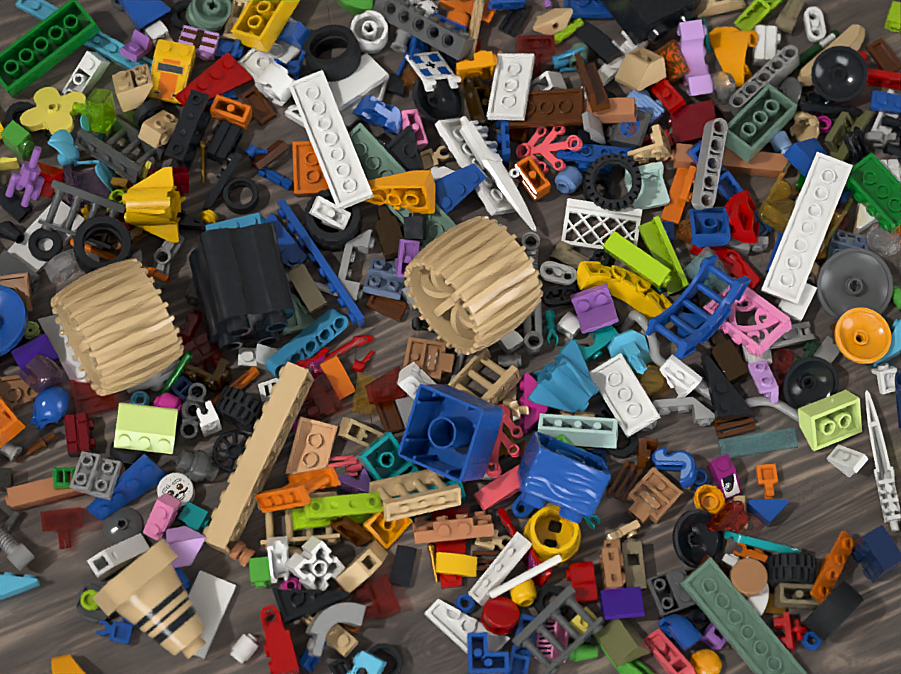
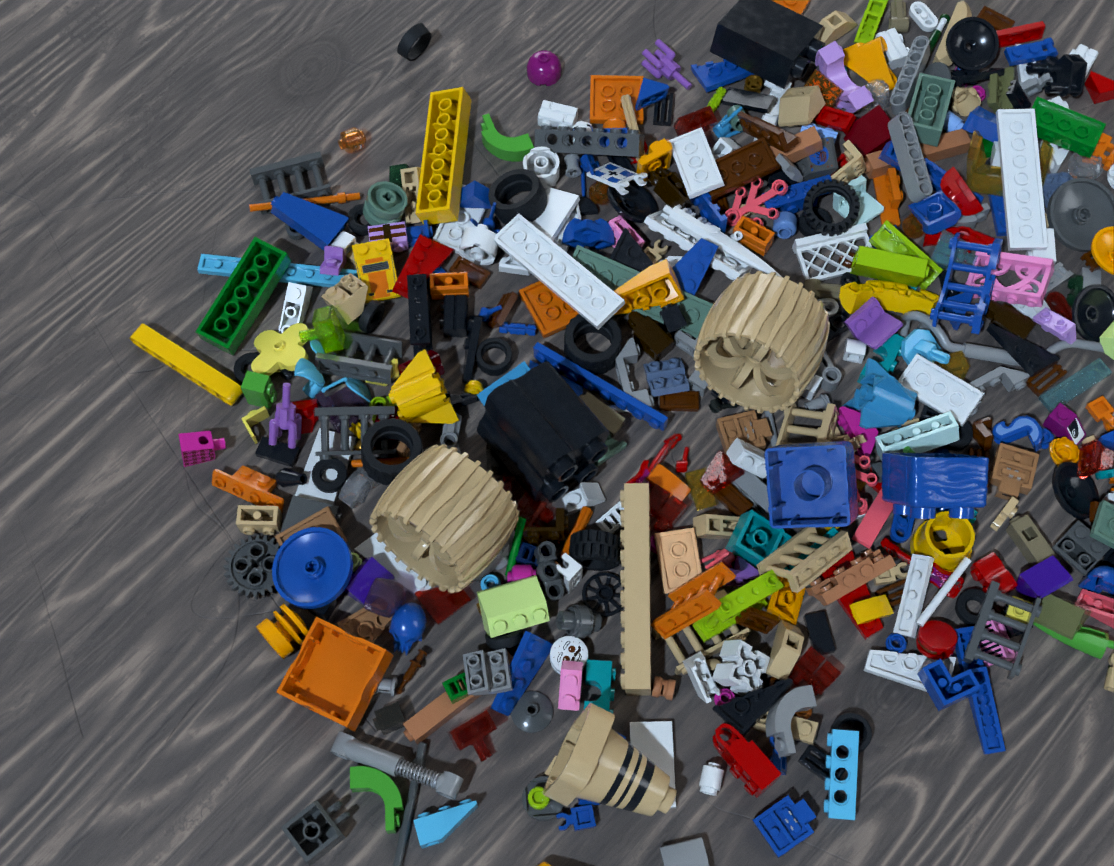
camera: 20 degrees left, 5 degrees down
(78, 434) = (447, 641): dark red brick -> none
(118, 556) = (544, 743): white slope -> none
(122, 184) = (378, 390): pearl gold tile -> none
(158, 129) = (390, 326): tan brick -> none
(185, 544) = (609, 697): lavender slope -> none
(203, 160) = (439, 334): pearl gold piece -> none
(259, 572) = (690, 697): bright green brick -> none
(308, 341) = (624, 464): dark azure beam -> none
(329, 214) = (590, 337): white slope -> none
(407, 251) = (680, 349): medium lavender slope -> none
(431, 549) = (837, 606): pearl gold piece -> none
(524, 593) = (947, 610): yellow head -> none
(551, 327) = (831, 350): teal piece -> none
(553, 21) = (700, 96): tan piece -> none
(584, 652) = (1033, 640): bright green cone -> none
(611, 565) = (1014, 549): medium nougat piece -> none
(612, 25) = (753, 81): none -> pearl gold wheel
(679, 376) = (981, 352): white wing -> none

